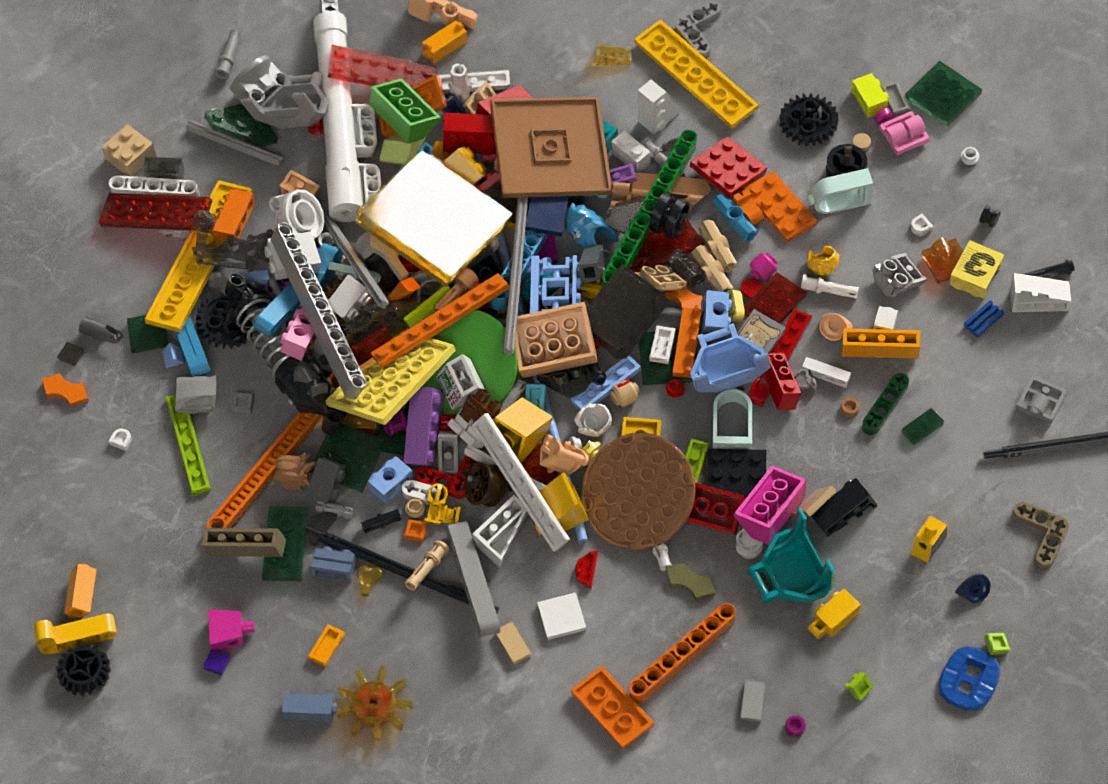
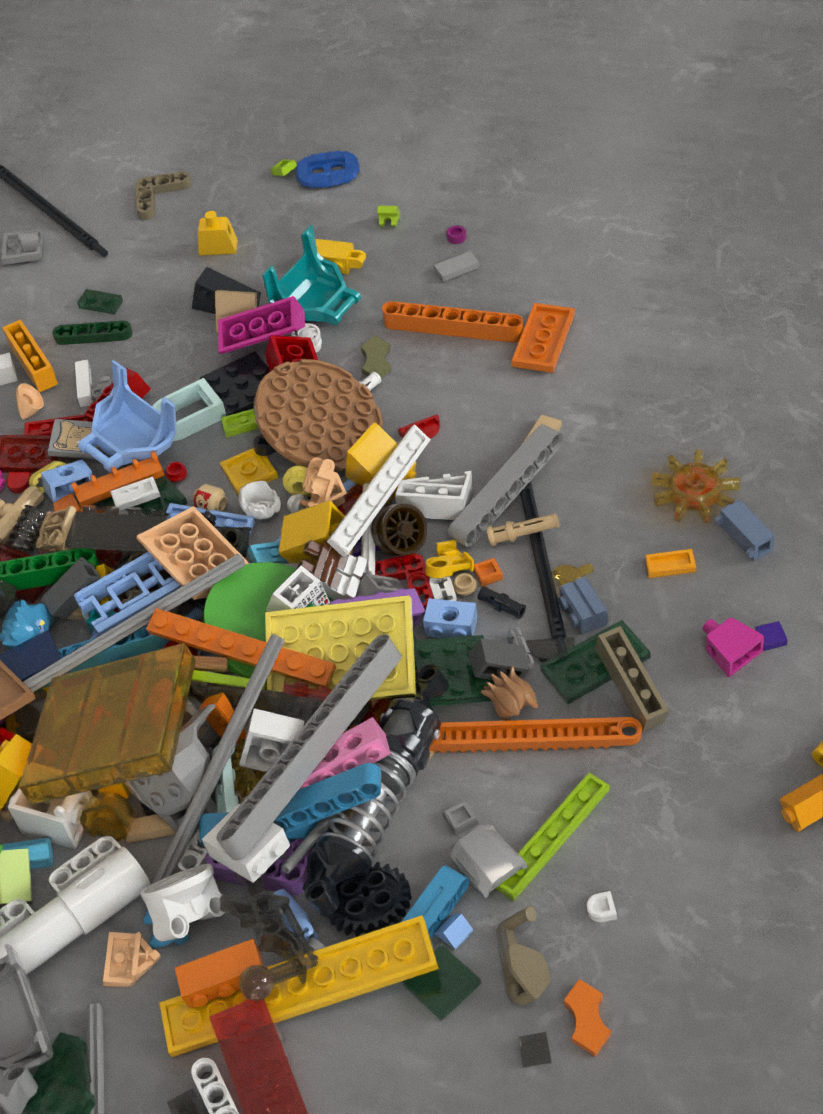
camera: 120 degrees left, 10 degrees down
(99, 330) = (480, 1035): dark grey piece -> none
(112, 372) = (521, 964): none -> dark tan piece
(561, 616) = (484, 418): white tile -> none
(850, 407) = (111, 352): medium nougat tile -> none
(974, 588) = (240, 199): dark blue piece -> none

